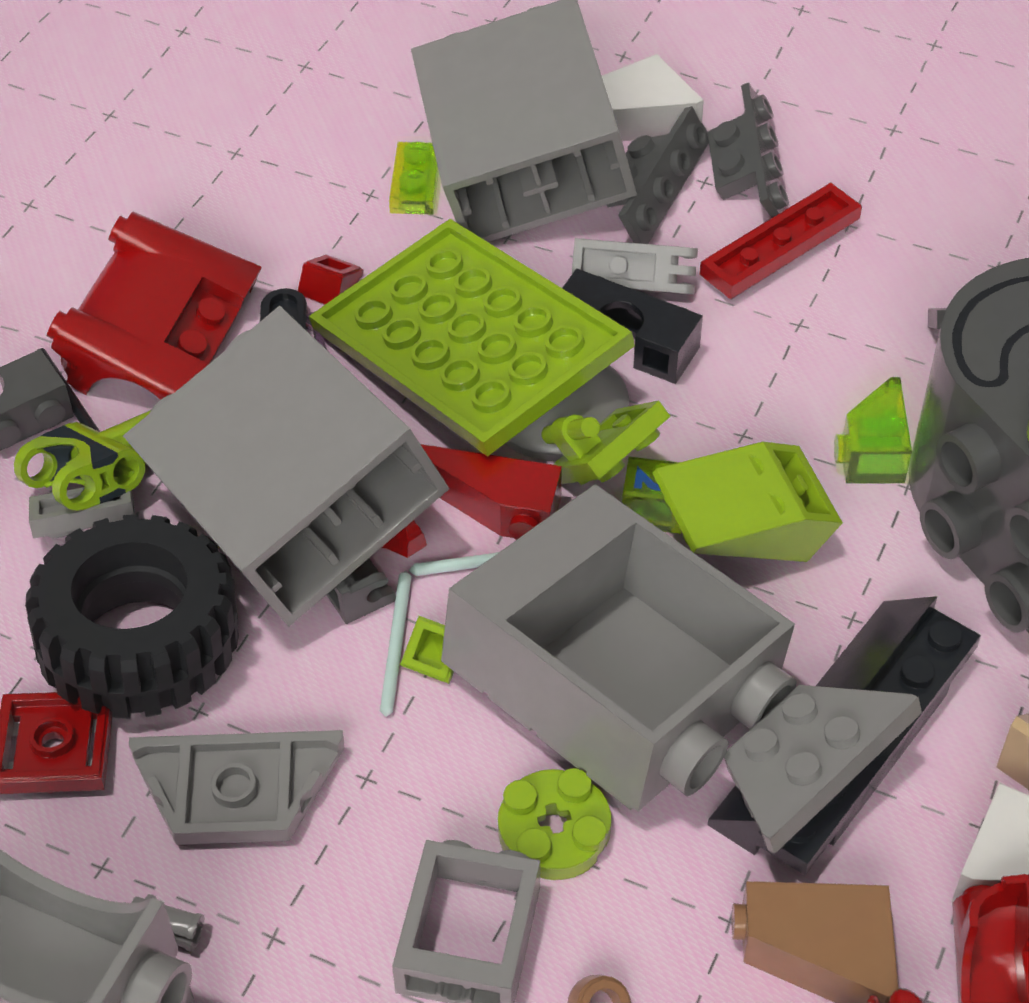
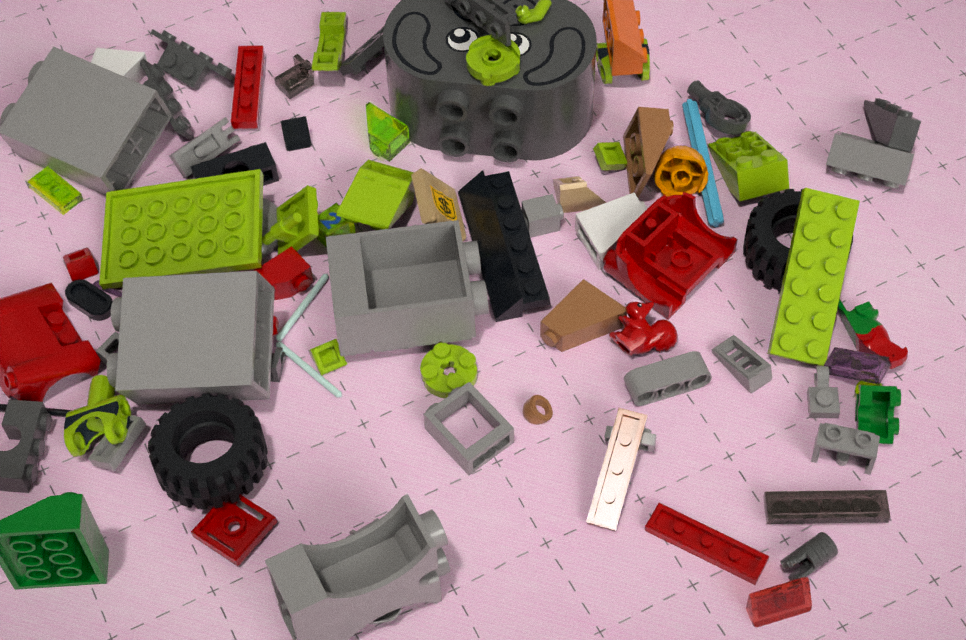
camera: 50 degrees left, 5 degrees up
(235, 783) = (322, 471): light grey wing -> none
(764, 343) = (296, 133): none -> black slope
(811, 751) = (510, 259): light grey wing -> none
(819, 586) = (436, 200): none -> tan container
(852, 278) = (296, 78): none -> clear smoke bracket
(940, 280) = (331, 42): none -> lime slope
(955, 741) = (542, 215): none -> light grey brick

